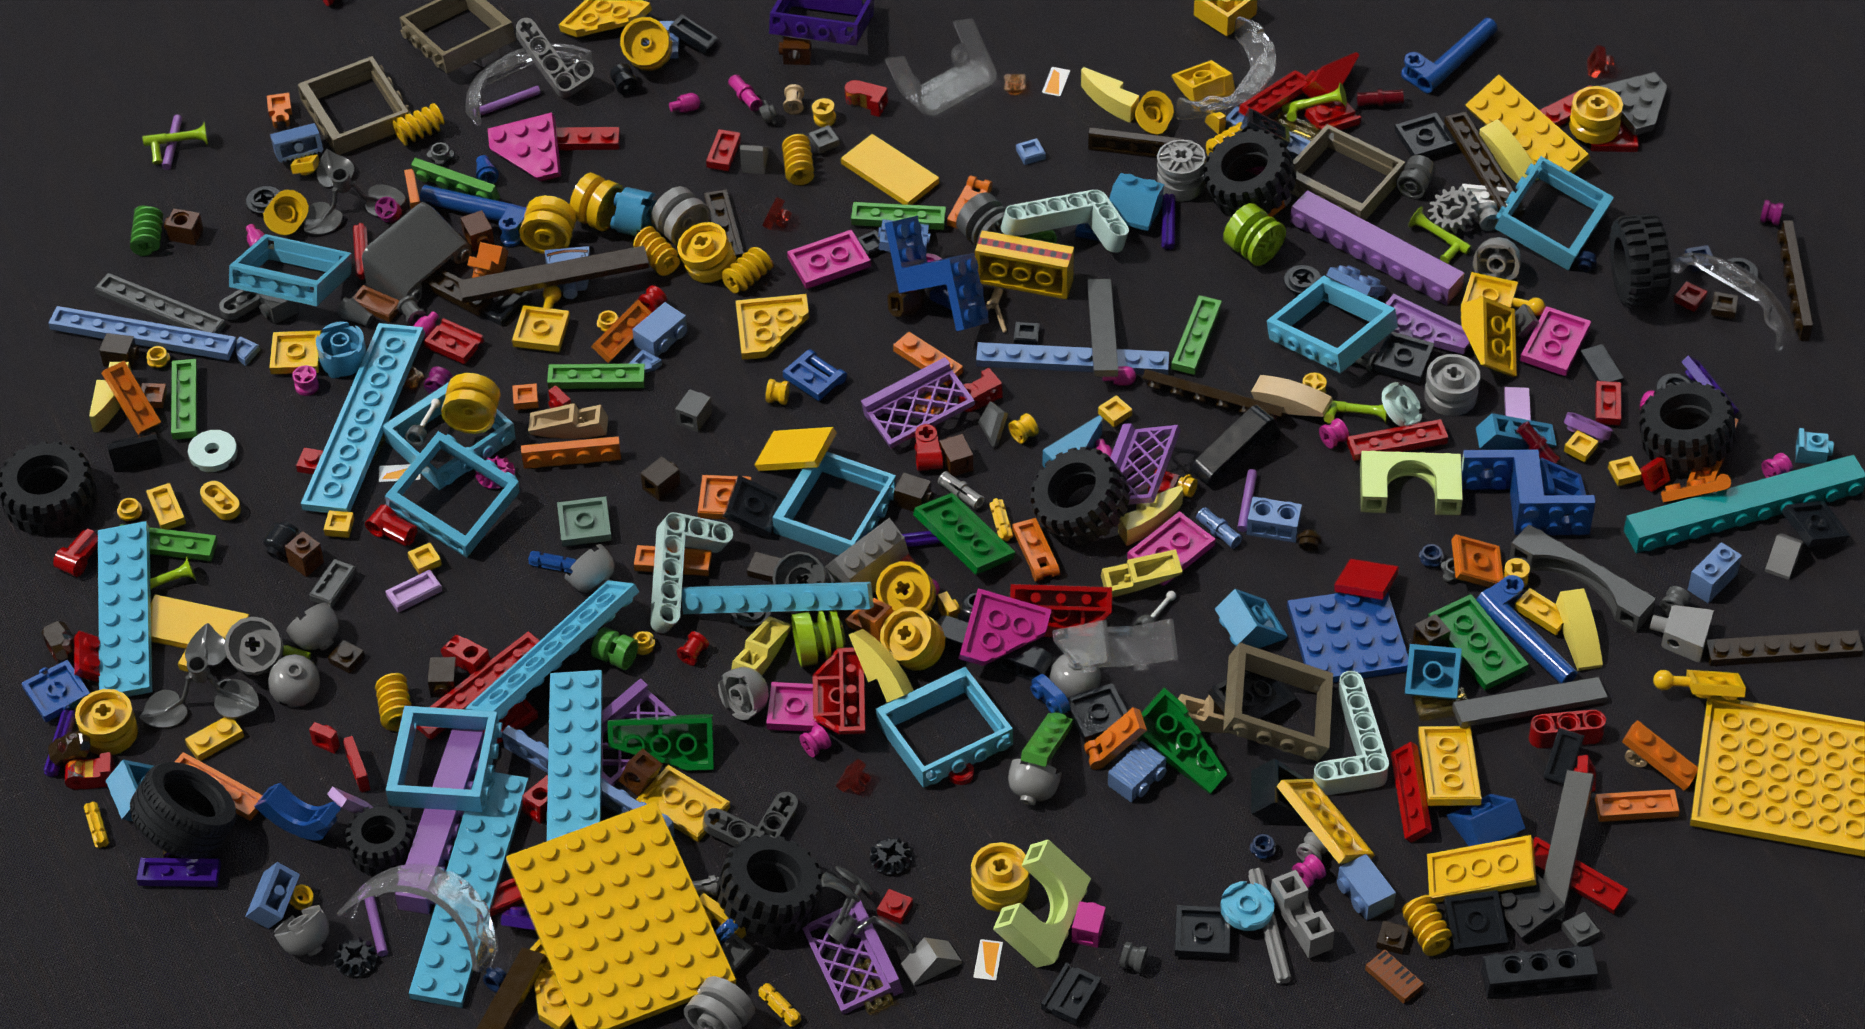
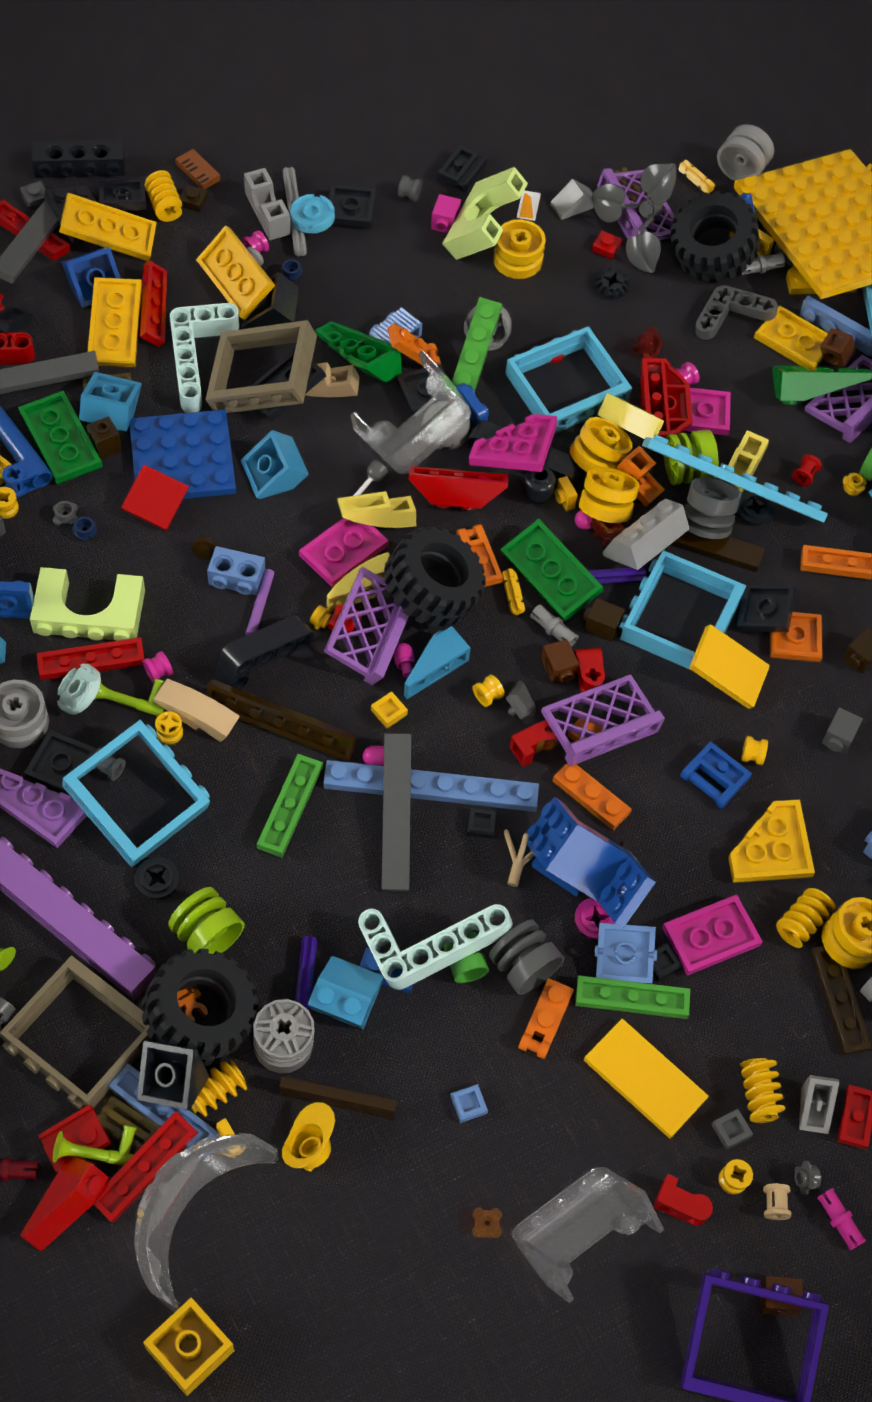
camera: 175 degrees right, 10 degrees up
(677, 540) = (843, 560): light aqua beam -> none
(743, 692) = (753, 413): light grey cylinder -> none
(777, 215) = (780, 1003): clear red tile -> none
(1025, 264) = (471, 887): yellow brick -> none
(1056, 81) = (431, 1234): sticker -> none
(1109, 94) = (362, 1188): light yellow slope -> none
(1205, 81) = (238, 1204): yellow slope -> none
(1219, 527) = (293, 571): medium blue pin -> none
(1351, 277) = (96, 855): medium blue plate -> none
(1366, 887) = (204, 223): medium blue brick -> none
(1476, 561) = (40, 512): orange tile -> none

